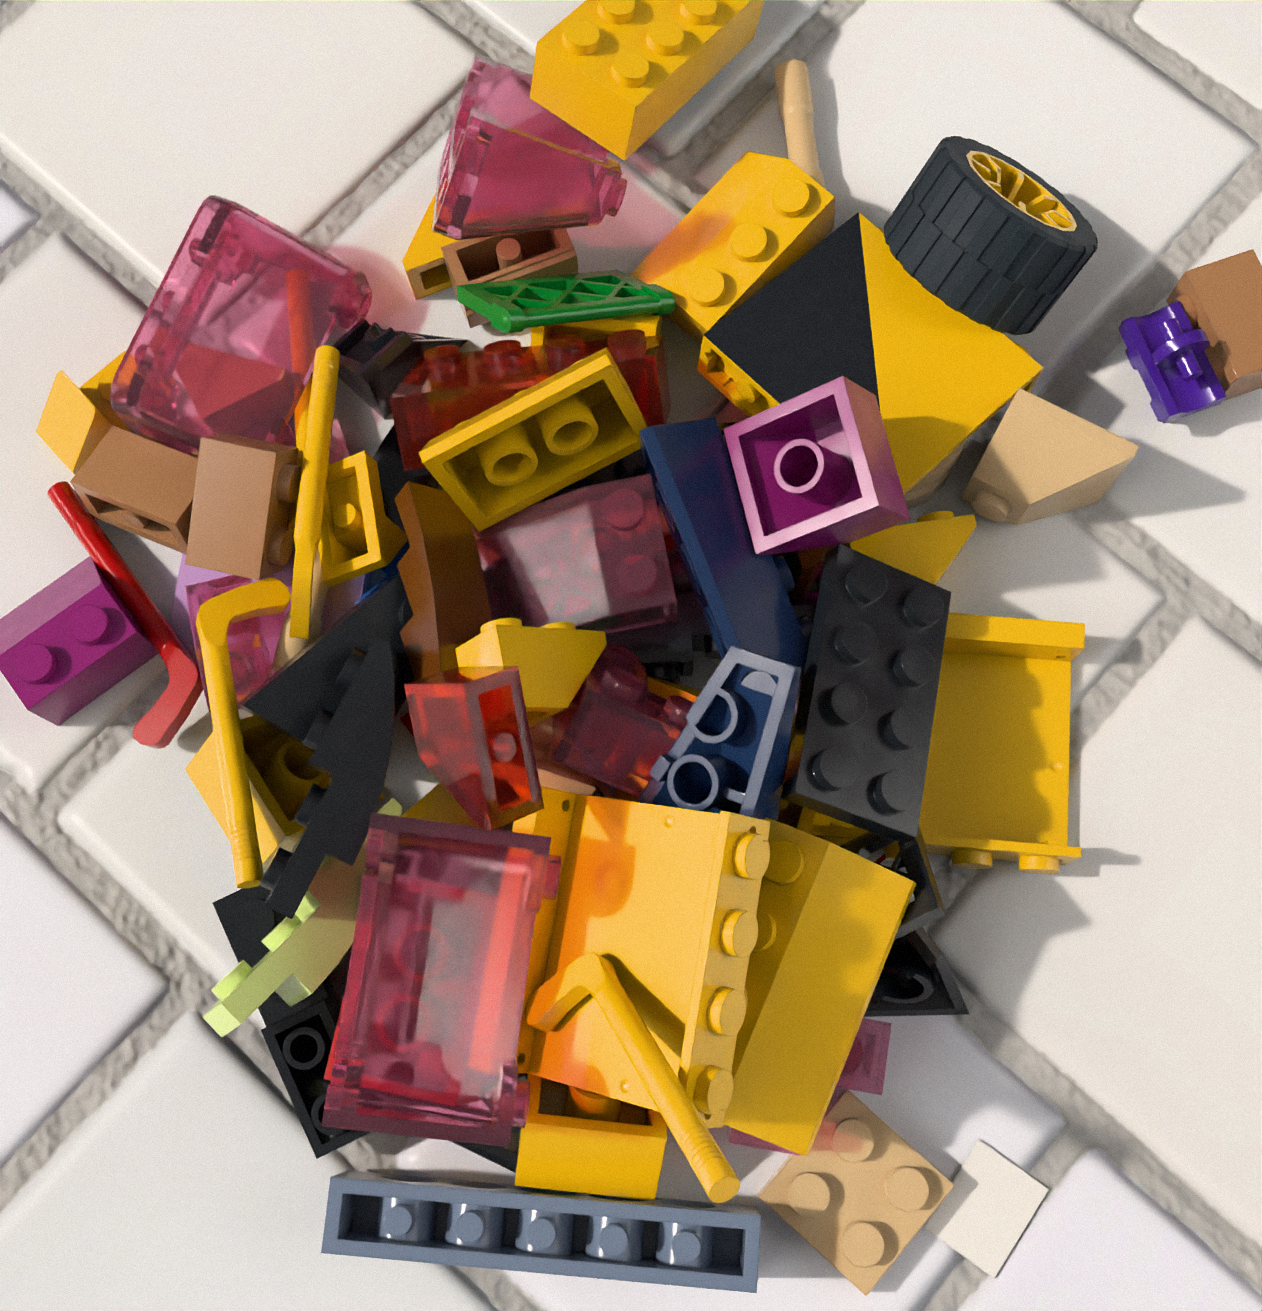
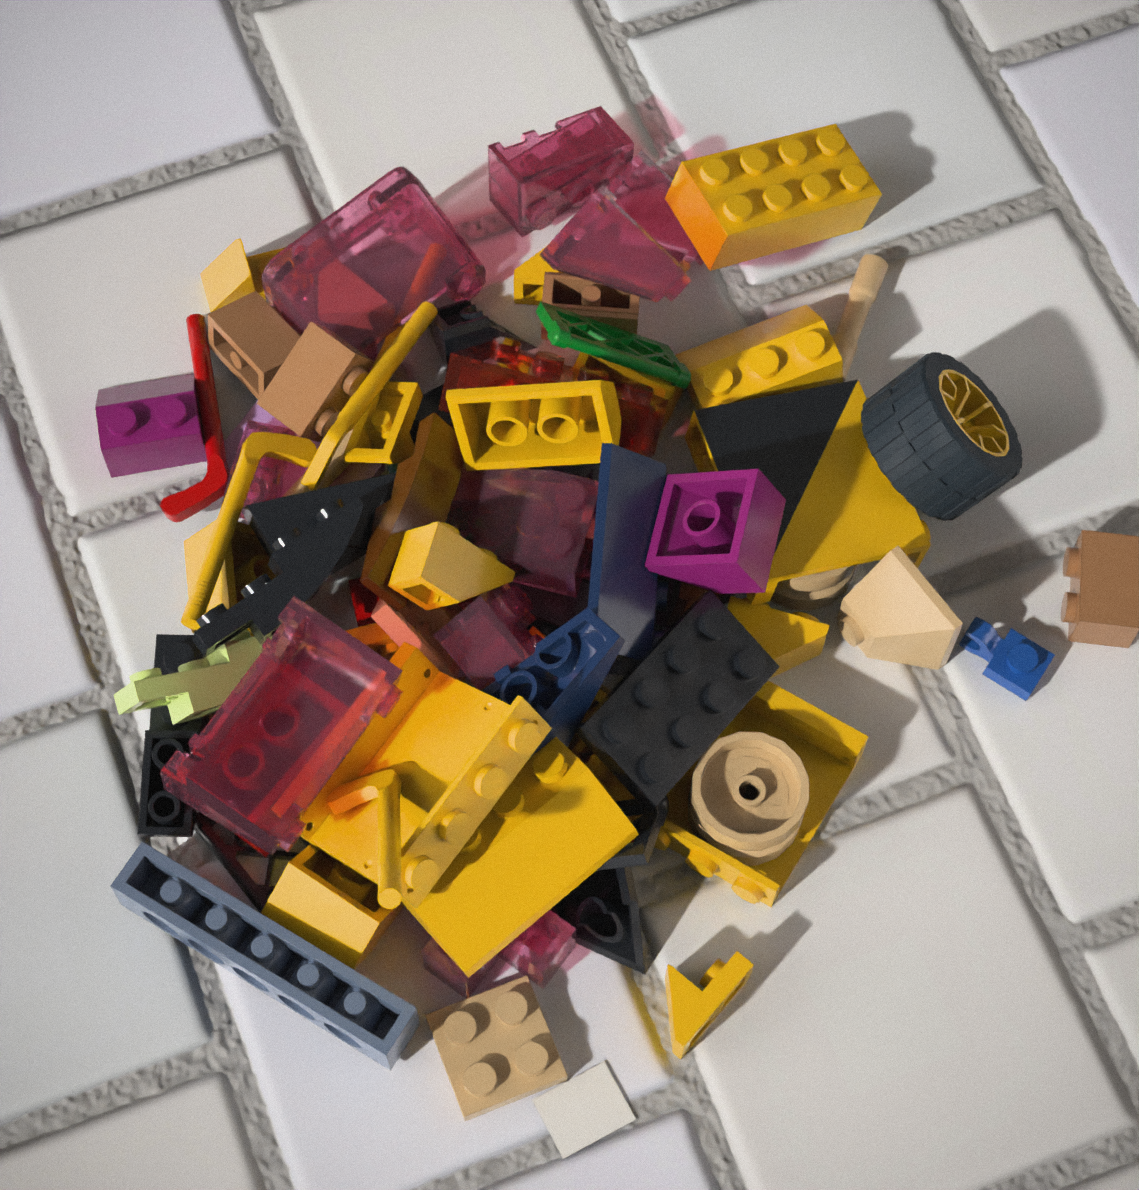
camera: 20 degrees right, 10 degrees down
(386, 119) = (556, 169): none -> clear pink wedge
(478, 741) = (387, 588): clear red slope -> none
(1024, 741) = (750, 768): none -> tan wheel
(1058, 1040) = (695, 1010): none -> yellow slope
(1172, 362) = (1040, 592): dark purple hips -> none
(1176, 454) = (1013, 661): none -> blue plate

